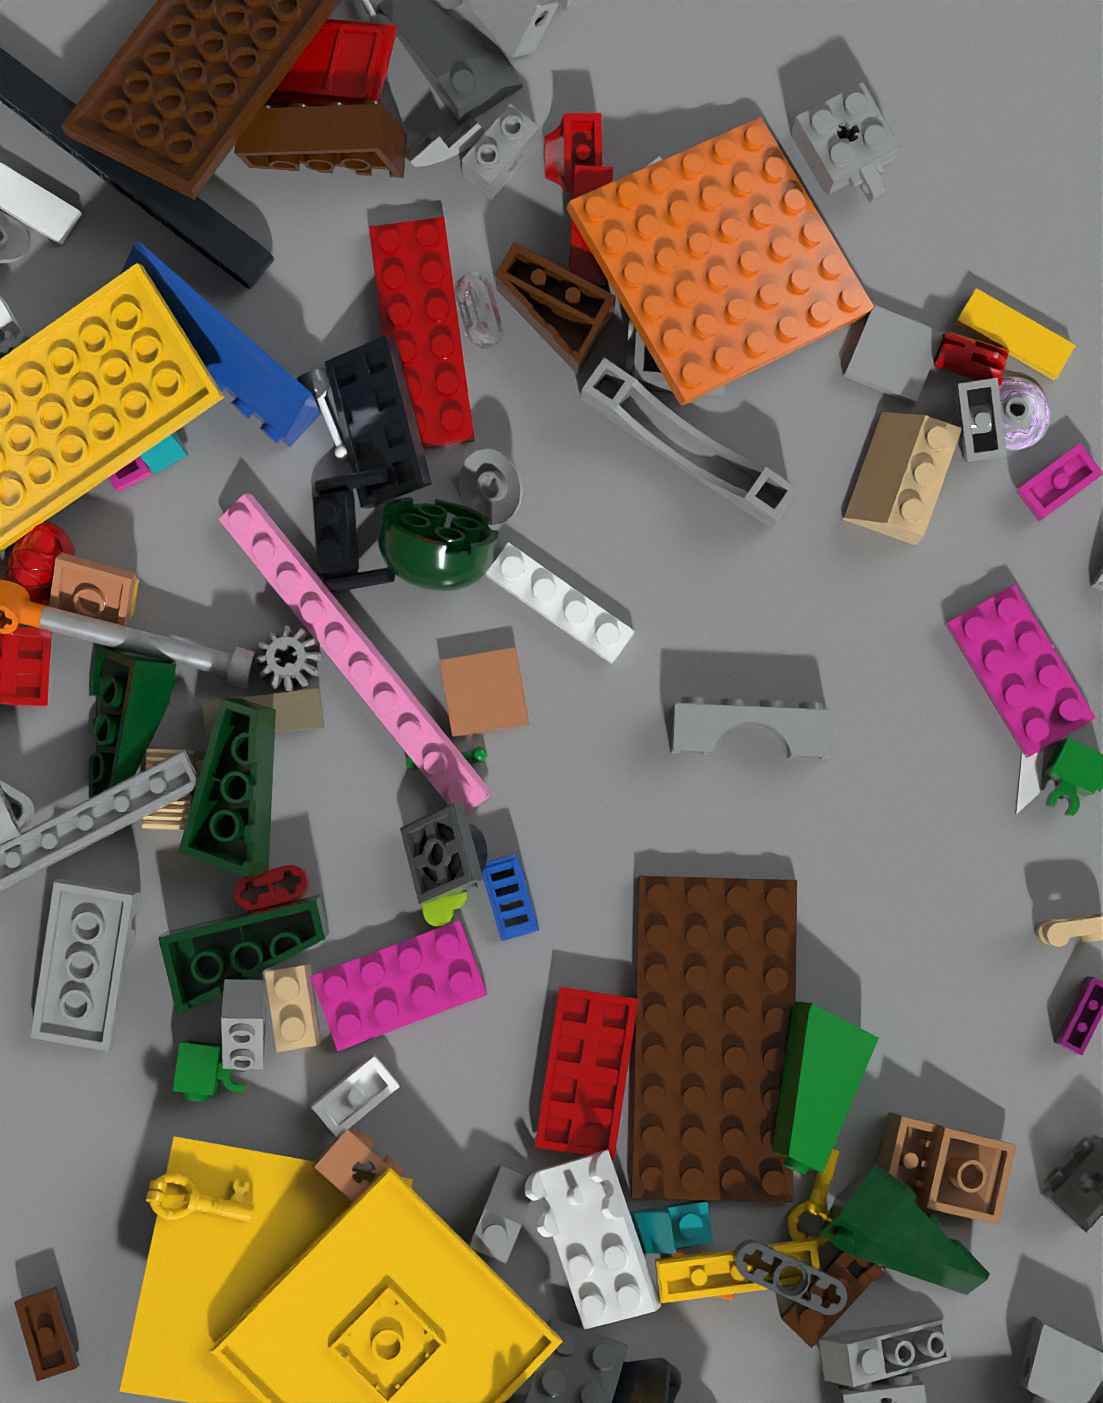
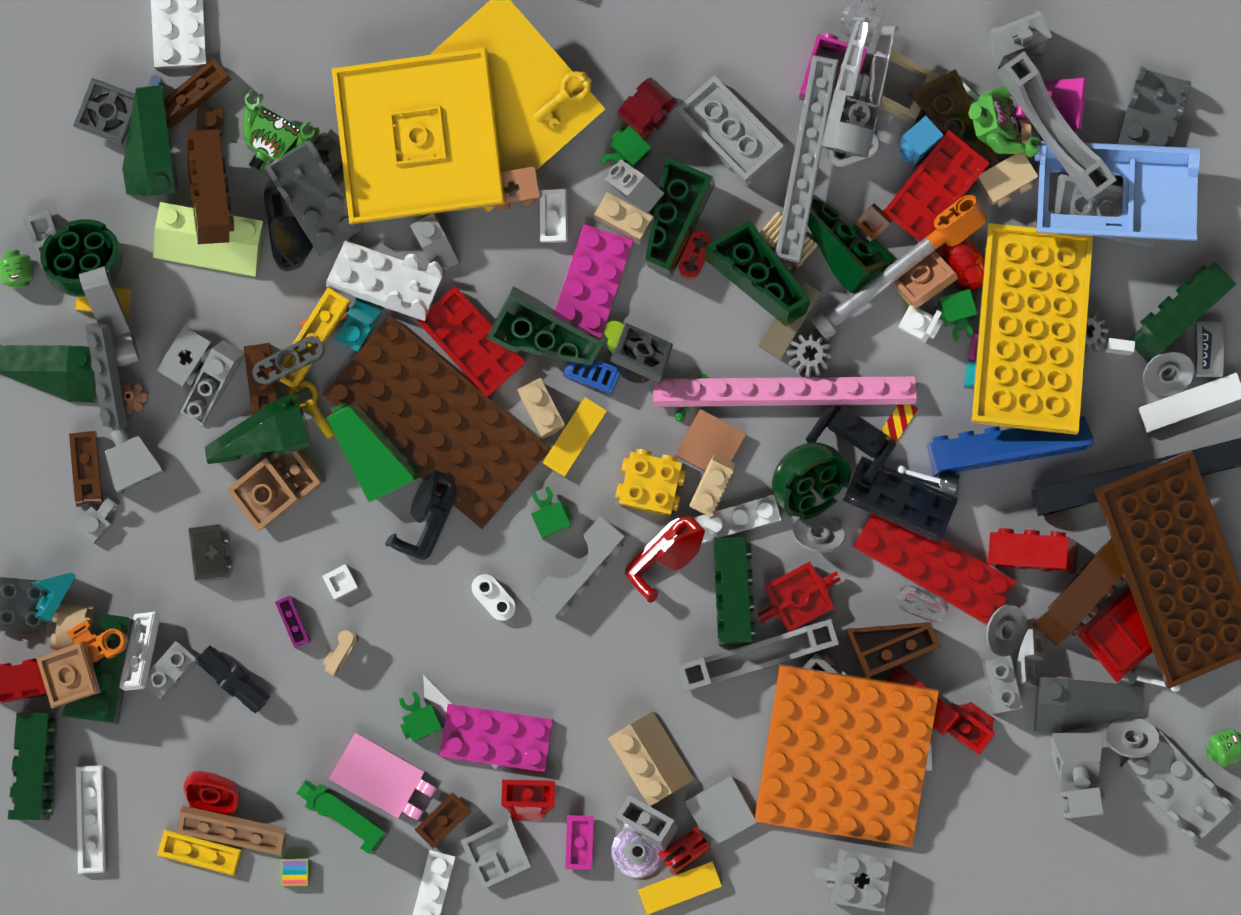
camera: 130 degrees right, 0 degrees up
(68, 707) = (873, 221): none -> reddish brown plate
(101, 528) = (957, 310): none -> green brick
(133, 1085) = (647, 108): none -> dark red brick
(149, 556) = (920, 324): none -> white bracket
(287, 499) = (898, 421): none -> sticker
(320, 230) = (1032, 550): none -> red wedge
(434, 194) = (1006, 630): none -> light grey dish
(509, 1007) = (536, 328): none -> dark green wedge
(532, 647) = (713, 485): none -> tan brick
(581, 453) = (798, 597): none -> red plate
(585, 724) = (650, 483): none -> yellow brick
(601, 857) = (574, 437): none -> yellow tile
(601, 922) = (541, 408): none -> tan brick
(638, 528) = (732, 591): none -> dark green wedge
(646, 627) = (670, 549): none -> red piece
(720, 808) = (551, 518): none -> green brick
(828, 971) = (423, 502): none -> black piece
(862, 801) = (493, 597): none -> white plate
(992, 997) = (340, 582): none -> white tile
(1056, 580) = (528, 798): none -> red slope

